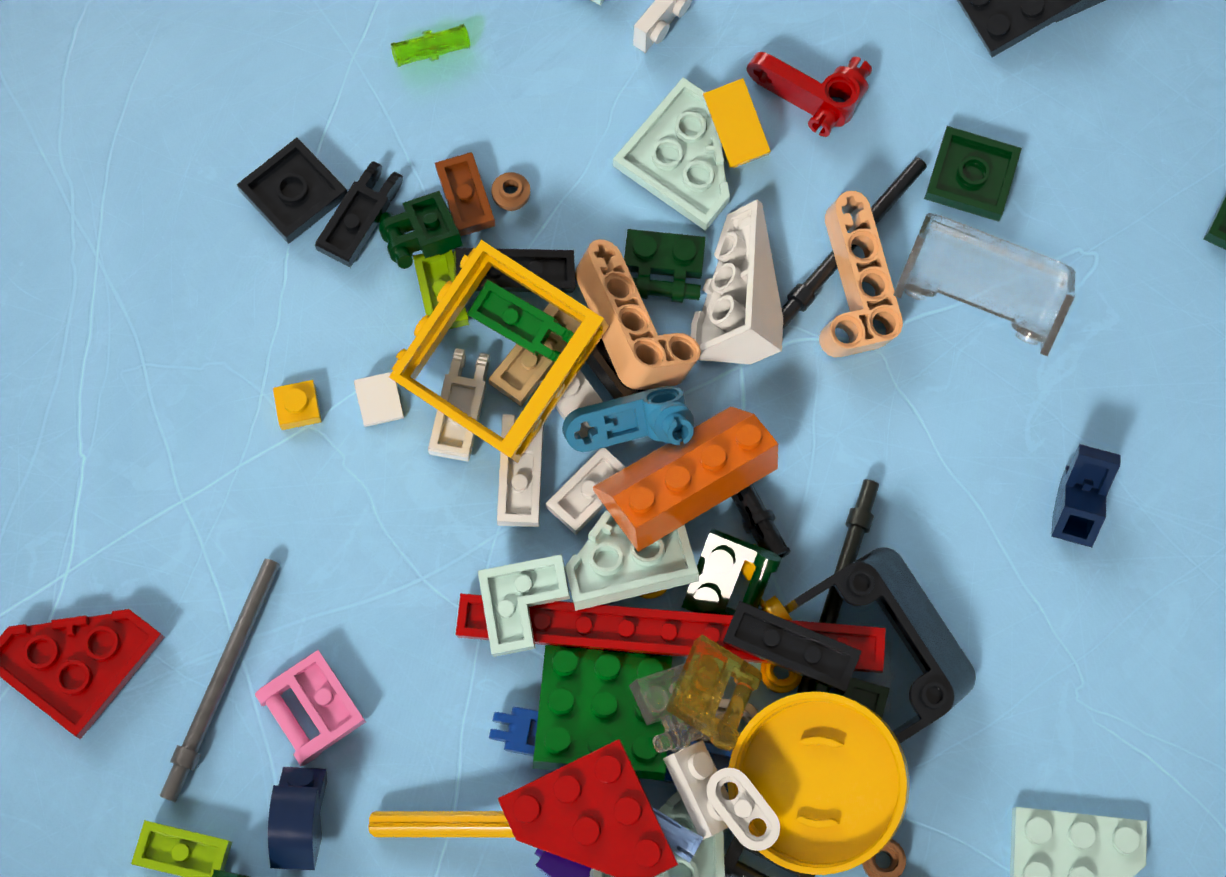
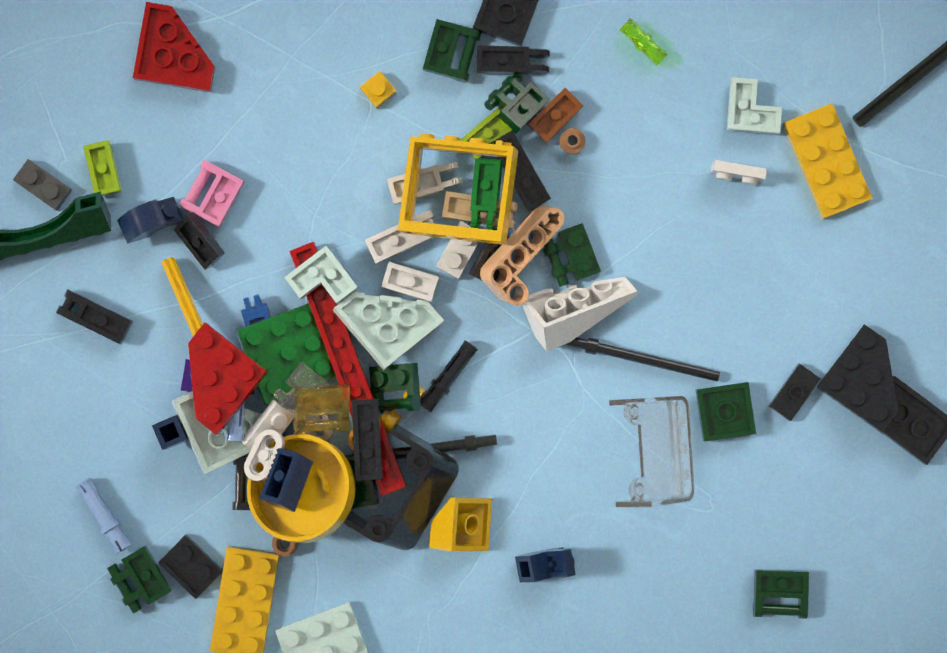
camera: 65 degrees right, 15 degrees up
(187, 756) = (153, 141): flat silver bar -> none
(295, 293) = (442, 50): none -> dark green plate
(369, 760) = (199, 241): none -> black plate
(378, 399) = (401, 133): white slope -> none
(649, 413) = (471, 295): dark azure piece -> none
(679, 156) = (647, 229): light aqua plate -> none
(689, 478) = (441, 333): orange slope -> none
(737, 123) = (681, 254): yellow hinge -> none
(798, 790) = (286, 479): none -> dark blue brick
(809, 93) = (747, 306): red piece -> none
(854, 271) = (617, 371): light nougat beam -> none
(975, 588) = (462, 525): none -> yellow slope
(985, 83) = (794, 392): none -> black plate

